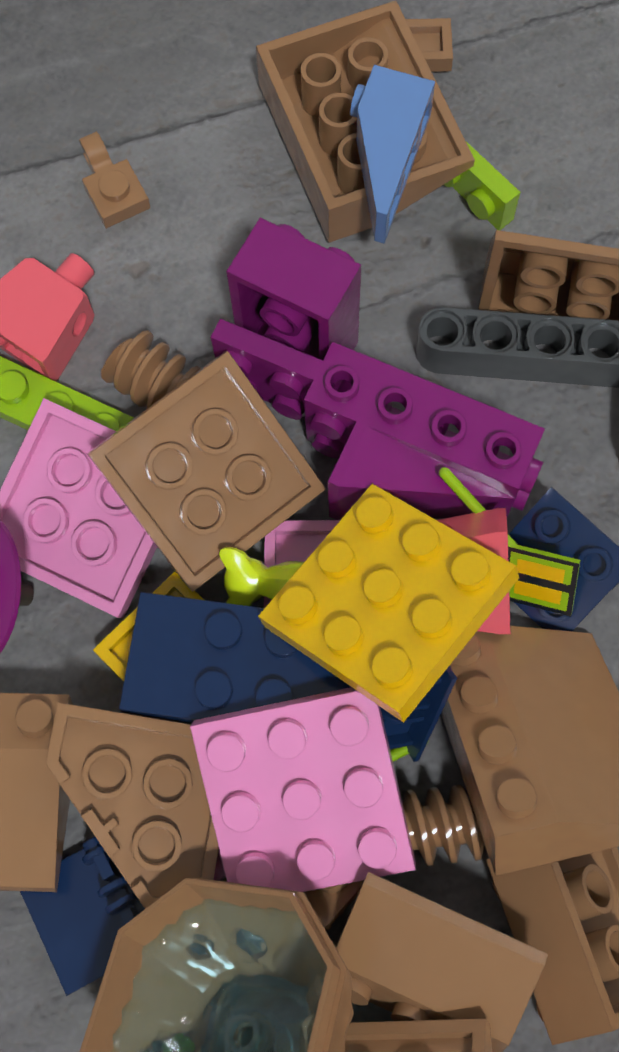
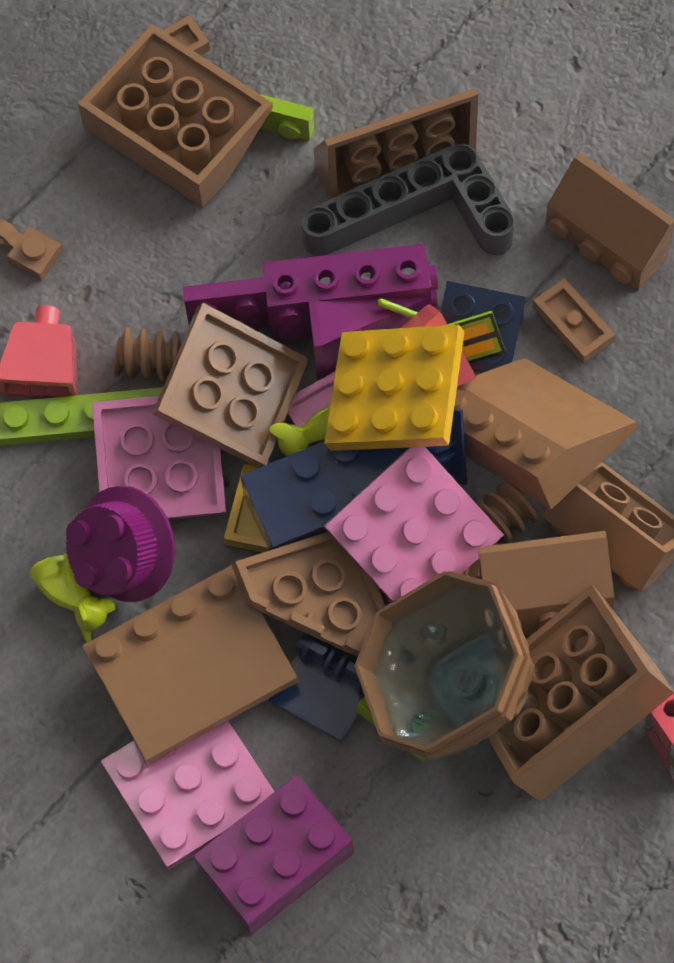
camera: 30 degrees left, 5 degrees down
(295, 290) = (217, 244): magenta brick -> none
(390, 128) = (211, 119): medium blue slope -> none

